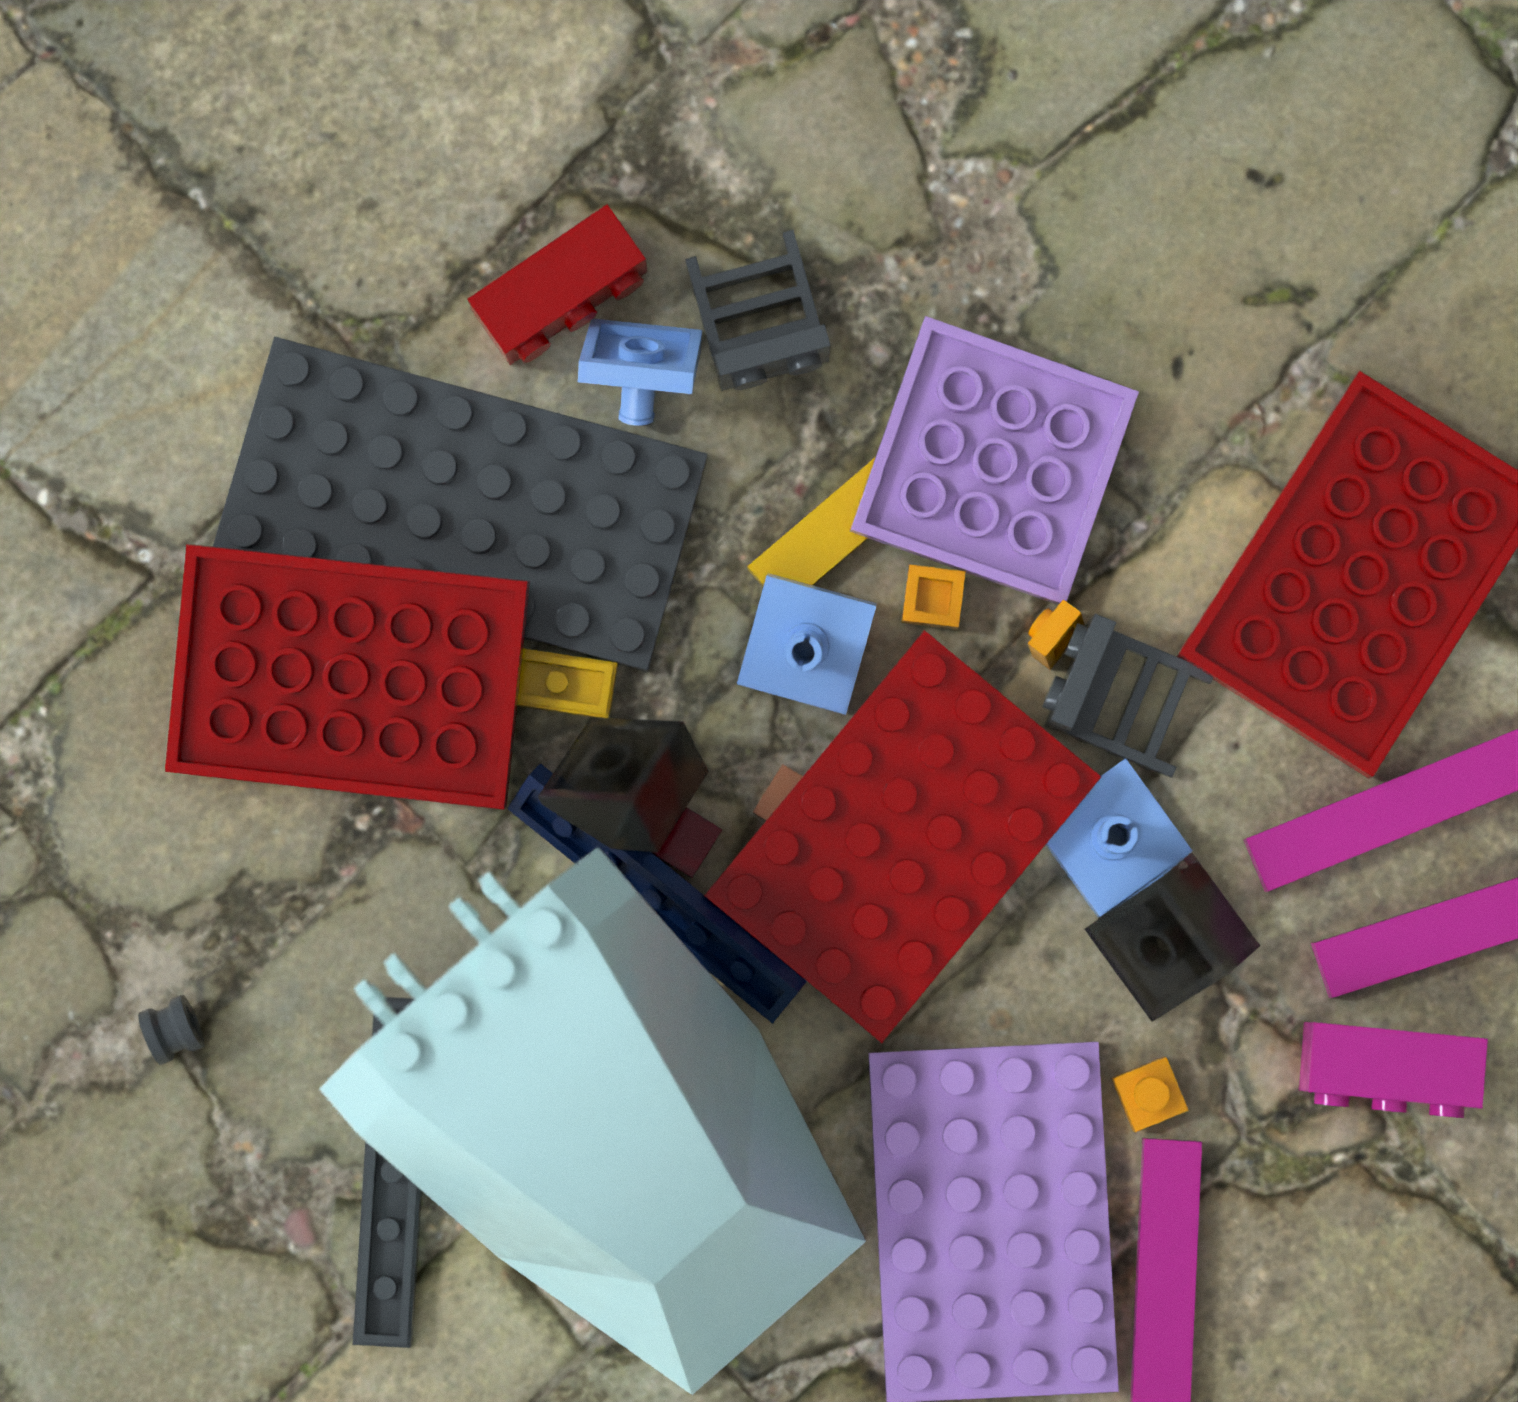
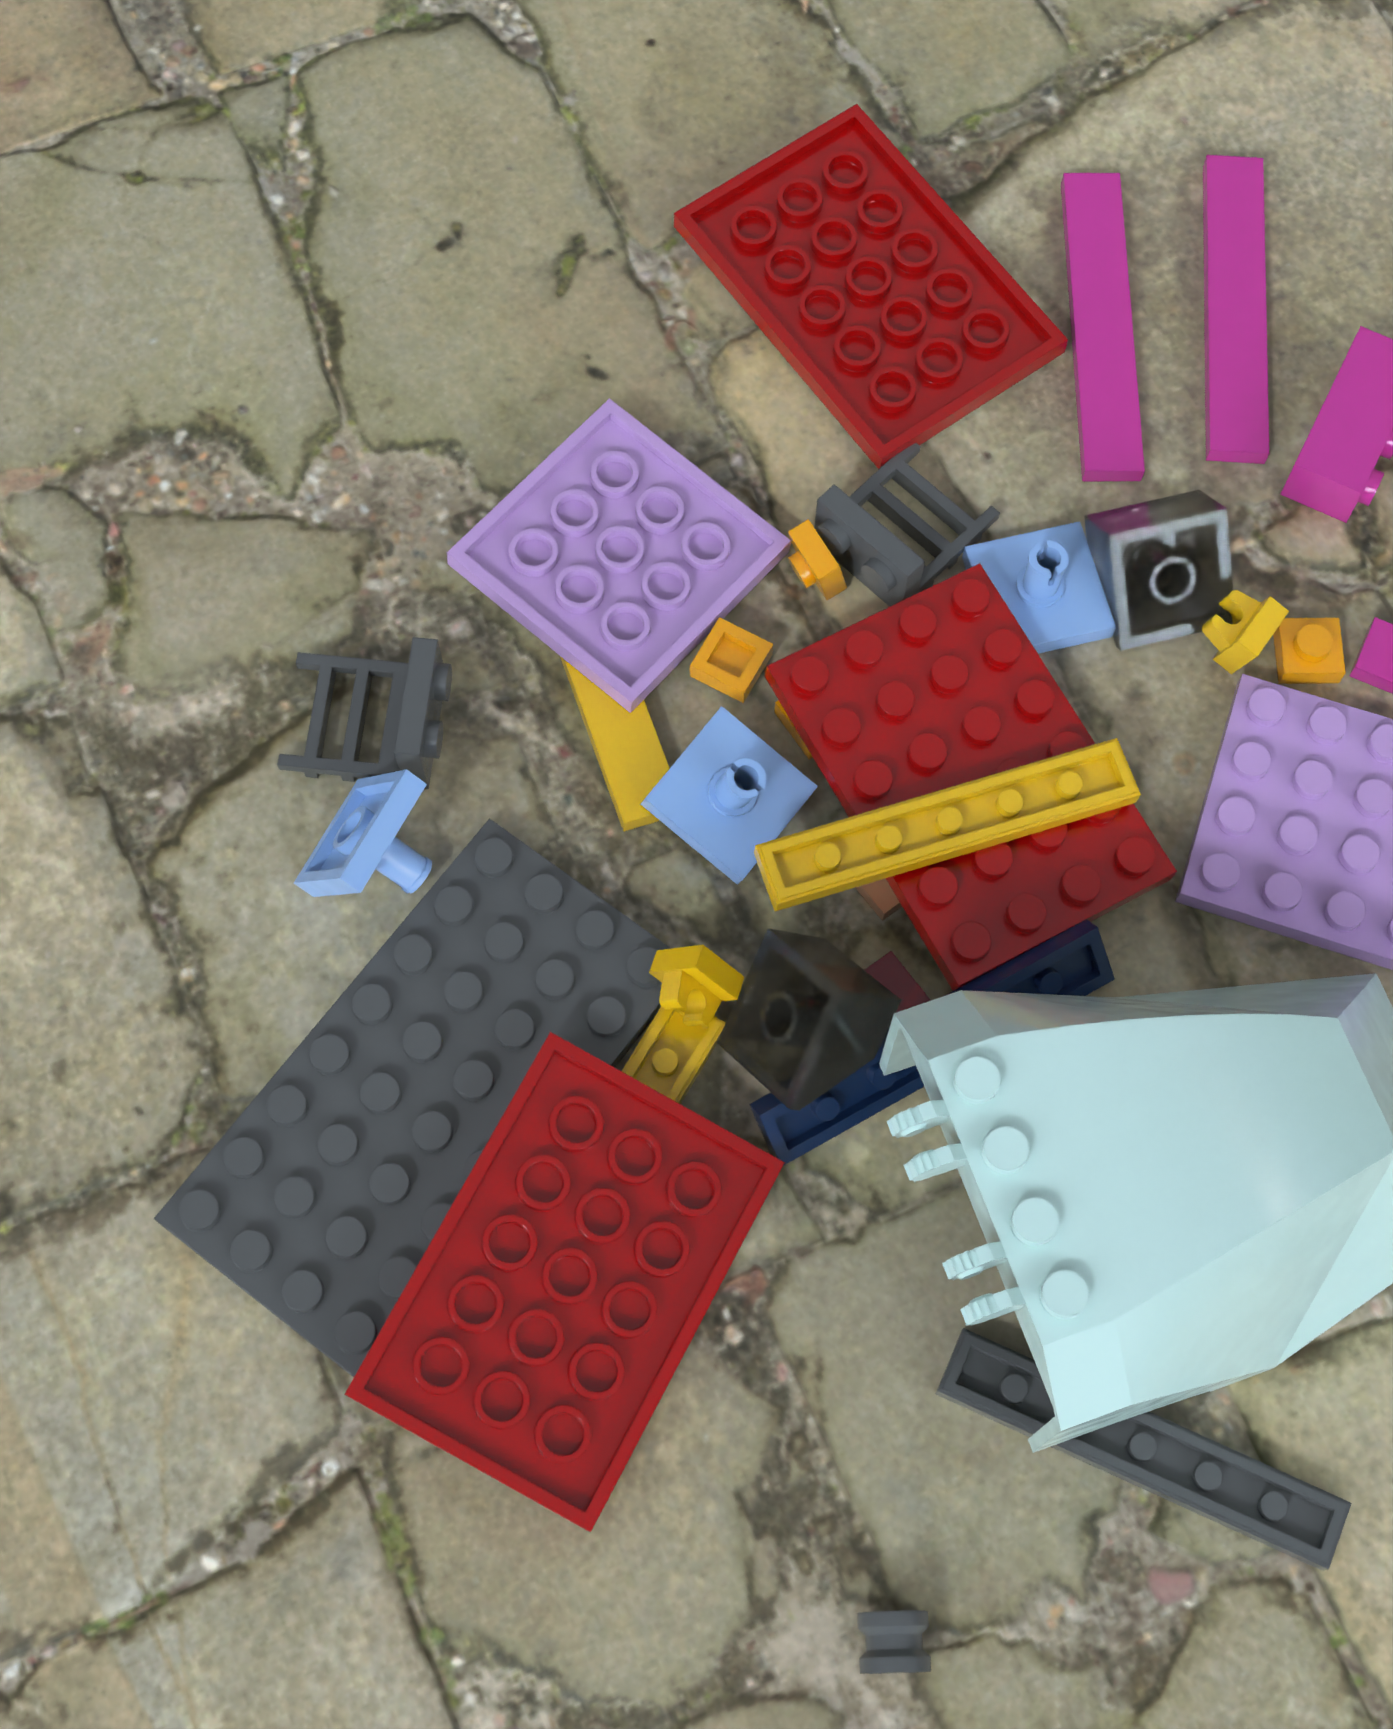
camera: 70 degrees left, 15 degrees down
(559, 286) = (246, 897): red brick -> none
(624, 677) = (695, 978): none -> yellow tile
(836, 836) = (945, 824): none -> yellow tile
(1137, 1035) = (1251, 629): none -> yellow tile

